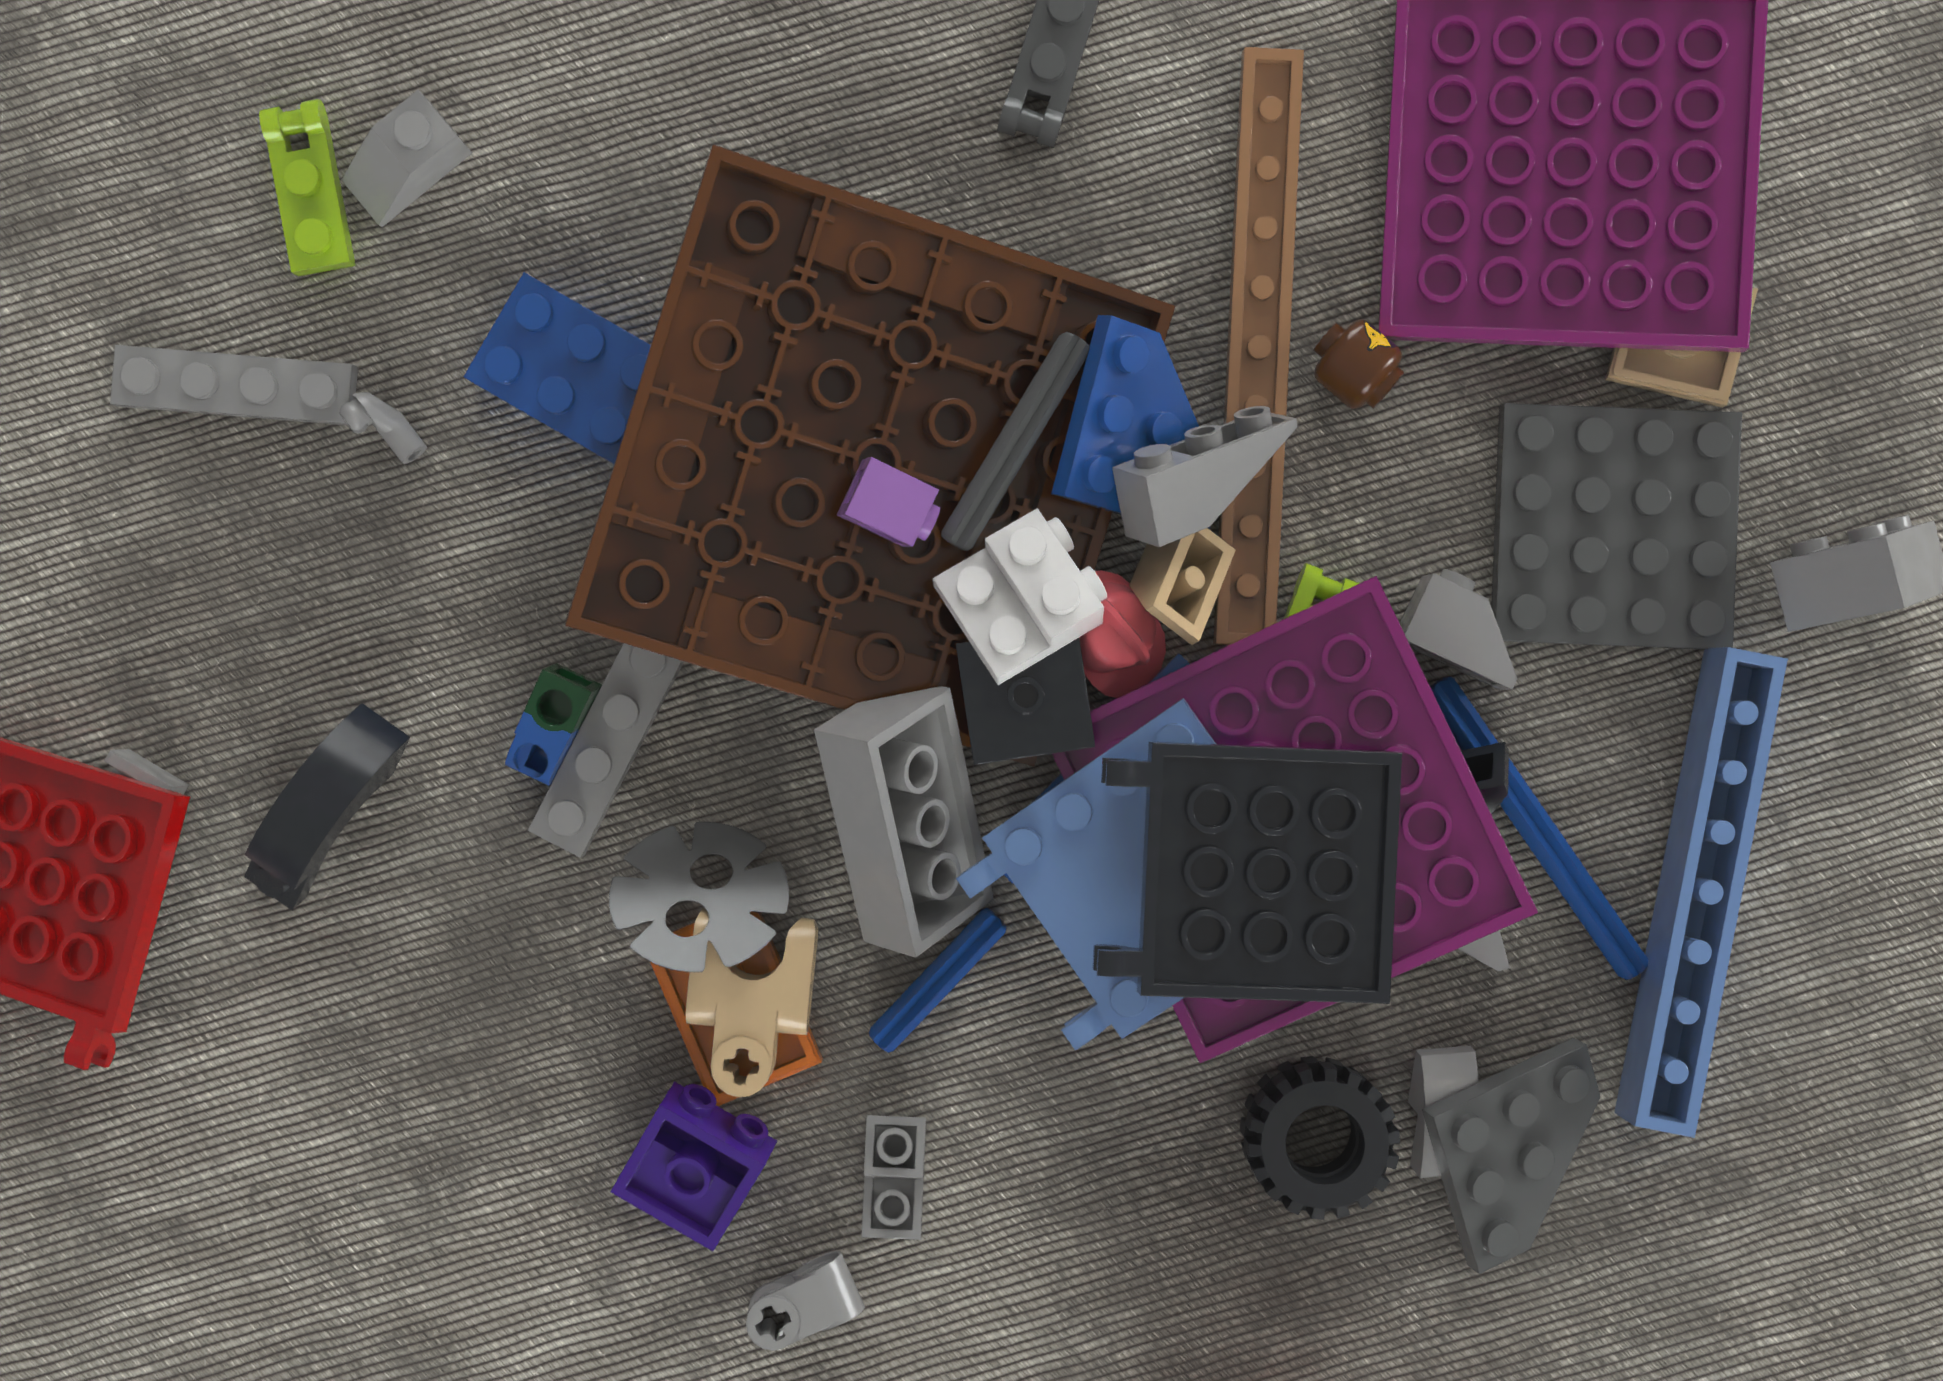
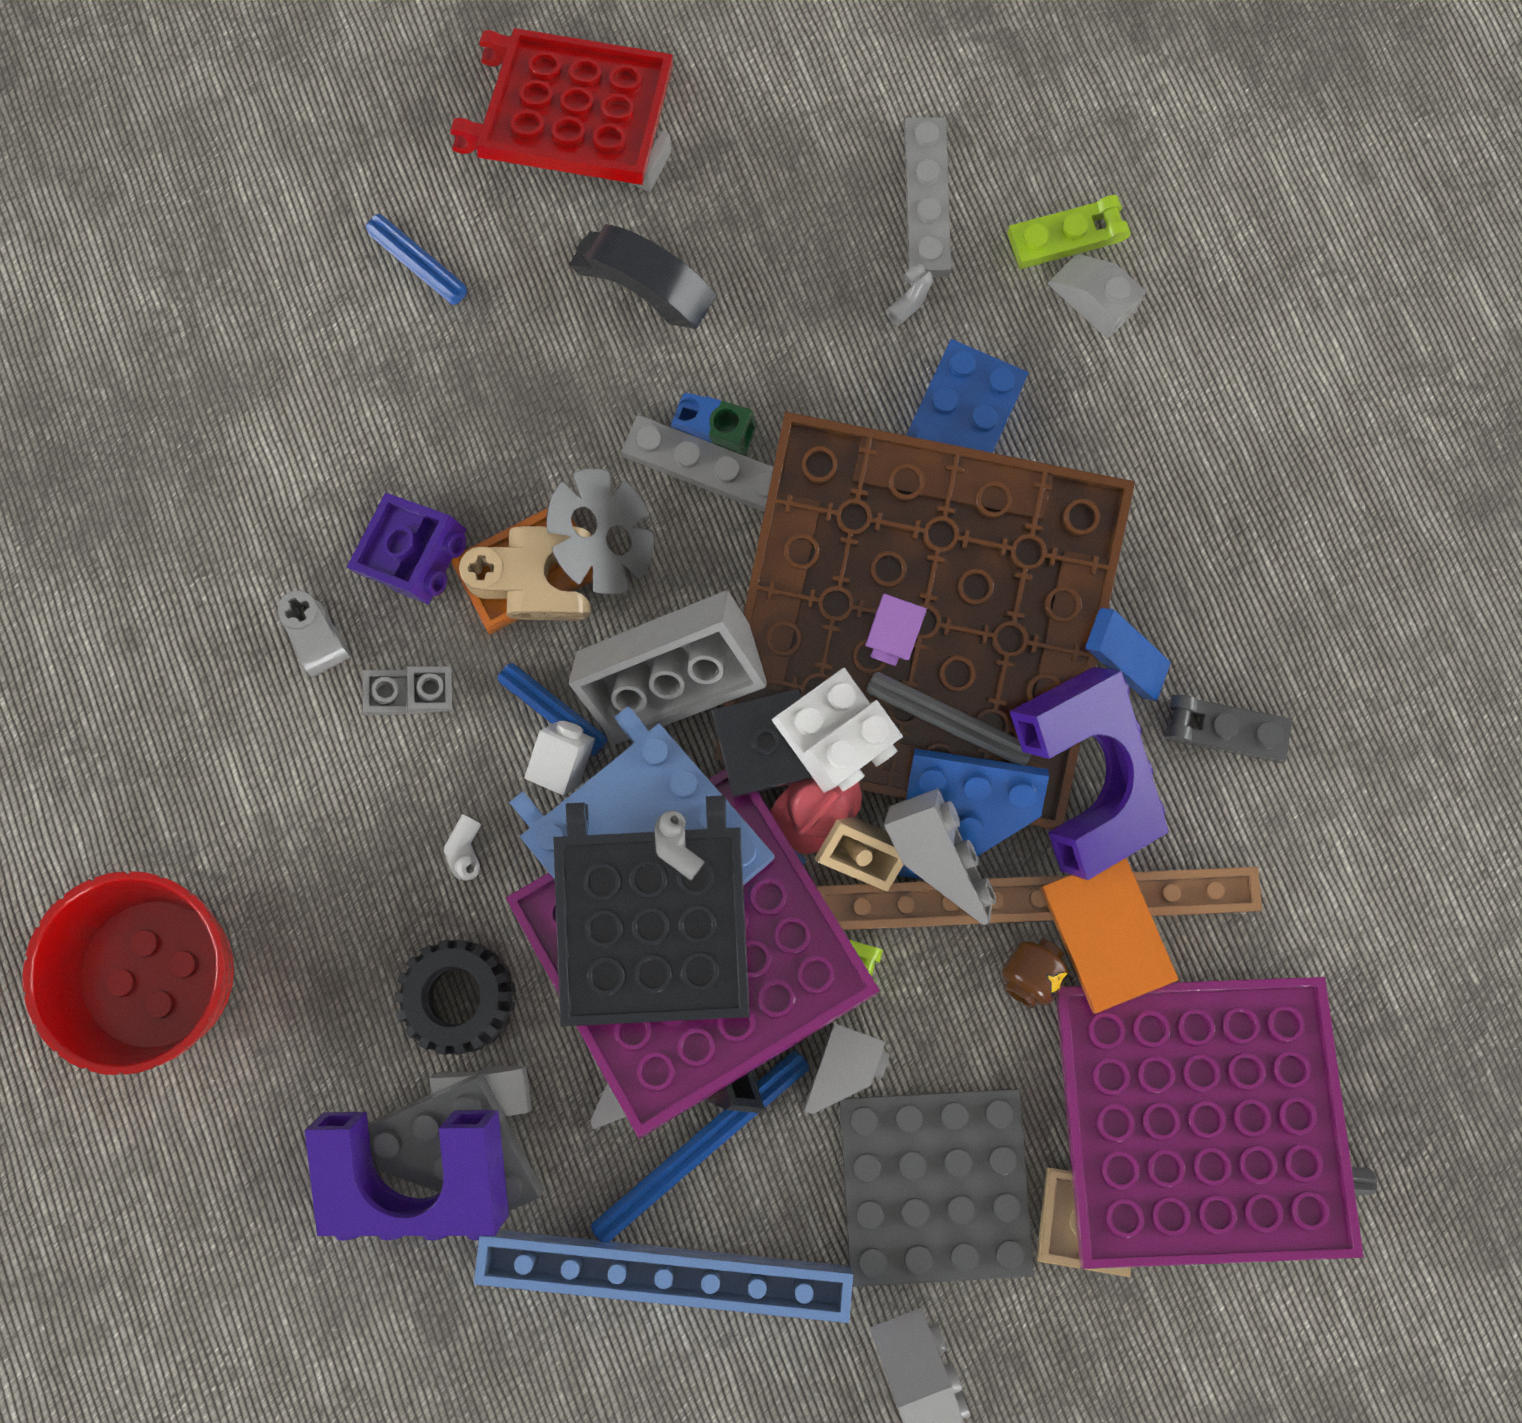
camera: 80 degrees right, 10 degrees down
(264, 1128) = (416, 259): none -> blue axle
(944, 185) = (1126, 650): none -> blue tile
(1011, 975) = (559, 757): none -> white brick
(1121, 1118) = (459, 850): none -> white arm
(1151, 211) = (1128, 807): none -> dark purple arch
(1170, 837) = (671, 844): none -> light grey arm
(1317, 259) = (1109, 936): none -> orange tile
(1572, 1280) = (356, 1202): none -> dark purple arch

